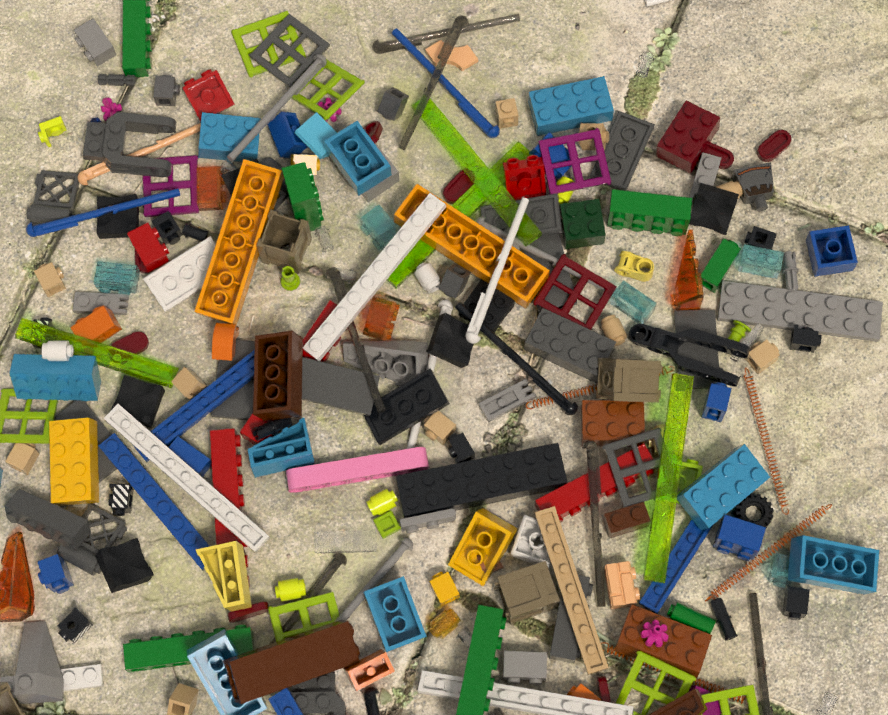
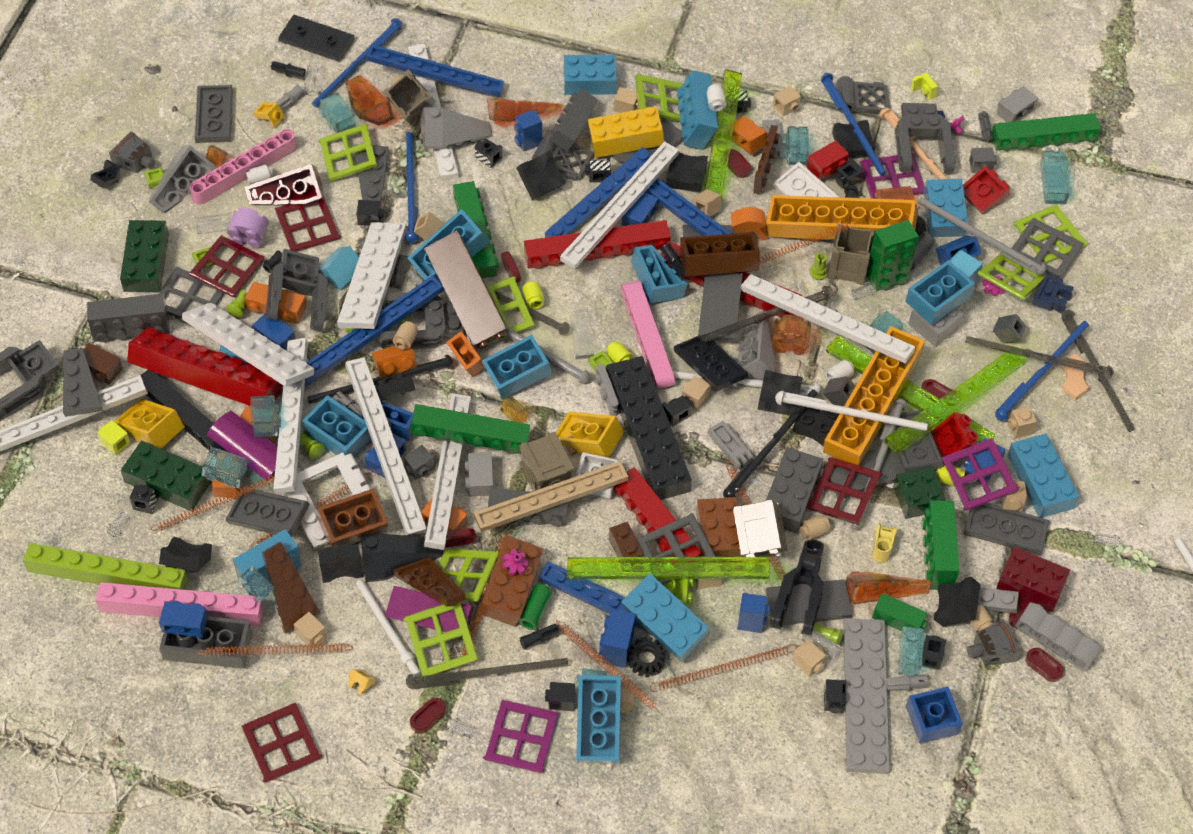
camera: 80 degrees right, 15 degrees down
(138, 312) = (764, 164): none -> reddish brown wing
(199, 24) = (1055, 177): none -> clear light blue brick
(228, 574) = (537, 239): light yellow wedge -> none
(271, 280) = (805, 242): none -> orange piece
(310, 160) = (930, 261): brick -> none
(348, 60) = (1047, 294): none -> dark blue plate
(374, 130) = (974, 313): dark red tile -> none
(444, 588) = (545, 407): yellow brick -> none
(595, 489) = (650, 511): clear smoke bar -> none
(620, 585) = (562, 545): light nougat brick -> none
(633, 303) = (843, 538): clear light blue brick -> none
(750, 126) = (1057, 636): none -> light grey brick
(834, 647) = (521, 736): none -> magenta window

